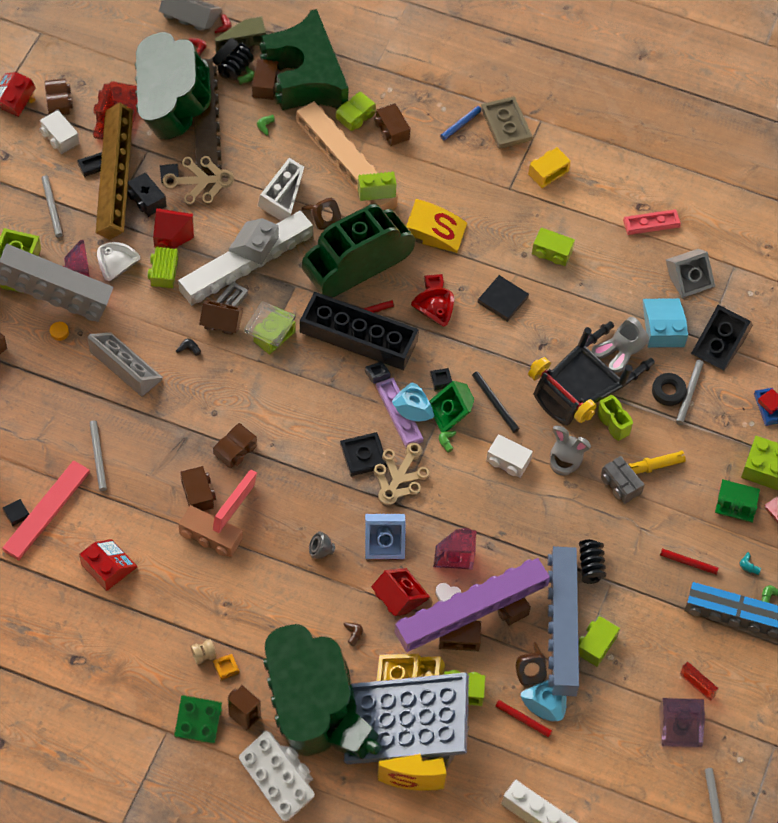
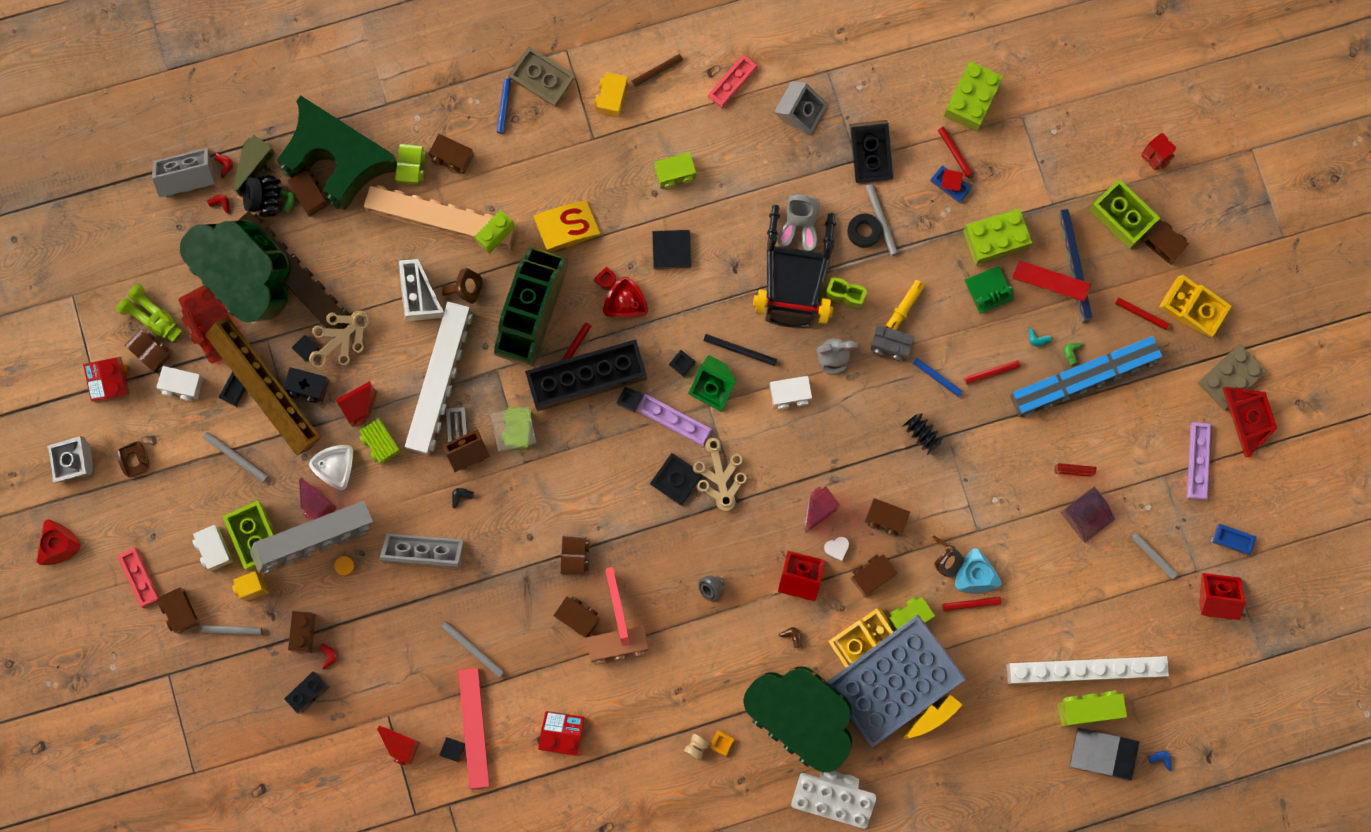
camera: 35 degrees left, 20 degrees up
(81, 85) = (160, 321): none -> lime piece
(198, 719) = (738, 803): green hinge -> none
(244, 707) = (767, 769): reddish brown brick -> none
(256, 240) = (436, 362): light grey slope -> none
(262, 122) = (339, 237): bright green animal -> none
(355, 737) = (869, 725): dark green torso -> none
(385, 536) = (752, 538): light blue slope -> none
(413, 403) = (679, 406): medium azure hat -> none
(444, 440) = (727, 416): bright green animal -> none
(471, 604) = (869, 549): medium lavender brick -> none
(563, 622) = (943, 502): sand blue brick -> none
(597, 641) = (978, 497): lime piece -> none
(598, 176) = (658, 69): none -> reddish brown bar
(640, 533) = (936, 376): none -> blue bar
(665, 323) = (814, 169): medium azure slope -> none

